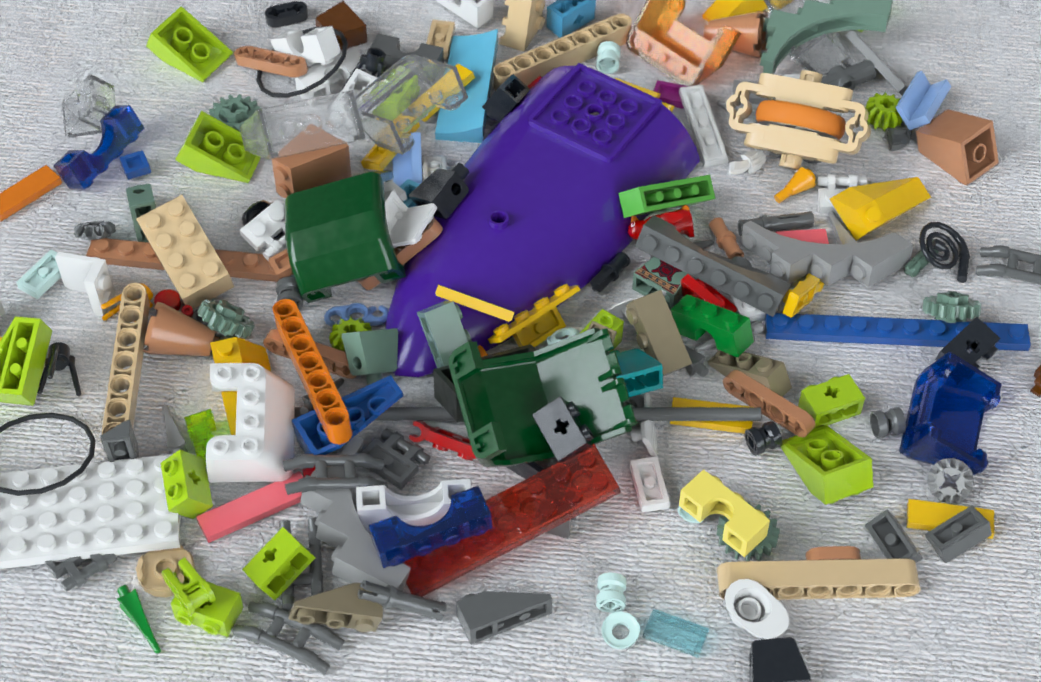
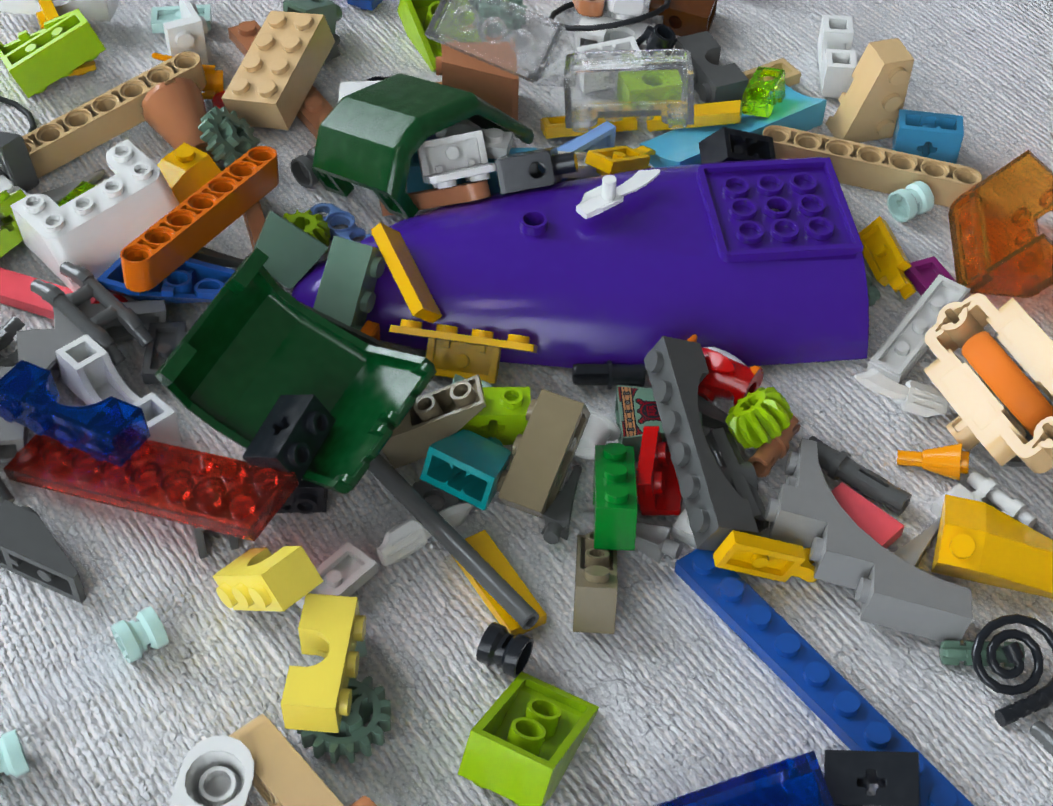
camera: 50 degrees right, 5 degrees down
(58, 359) = (92, 77): black plant -> none
(94, 230) = (254, 11): dark grey gear -> none
(452, 150) = (619, 159): none -> yellow plate
(464, 52) = (763, 95): none -> clear neon green leg
(518, 175) = (609, 195): none -> white piece
(620, 618) = (88, 666): light aqua piece -> none
(660, 498) = (266, 580): none -> light yellow arch
(666, 195) = (753, 344): bright green brick -> none
(675, 633) = (135, 735): clear light blue tile -> none
(715, 230) = (759, 417): none -> lime gear
(771, 404) = (561, 625): nougat beam -> none
(832, 400) = (632, 686): lime brick -> none
(887, 422) = (660, 768): dark grey wheel -> none
(951, 307) = (923, 726): sand green gear -> none

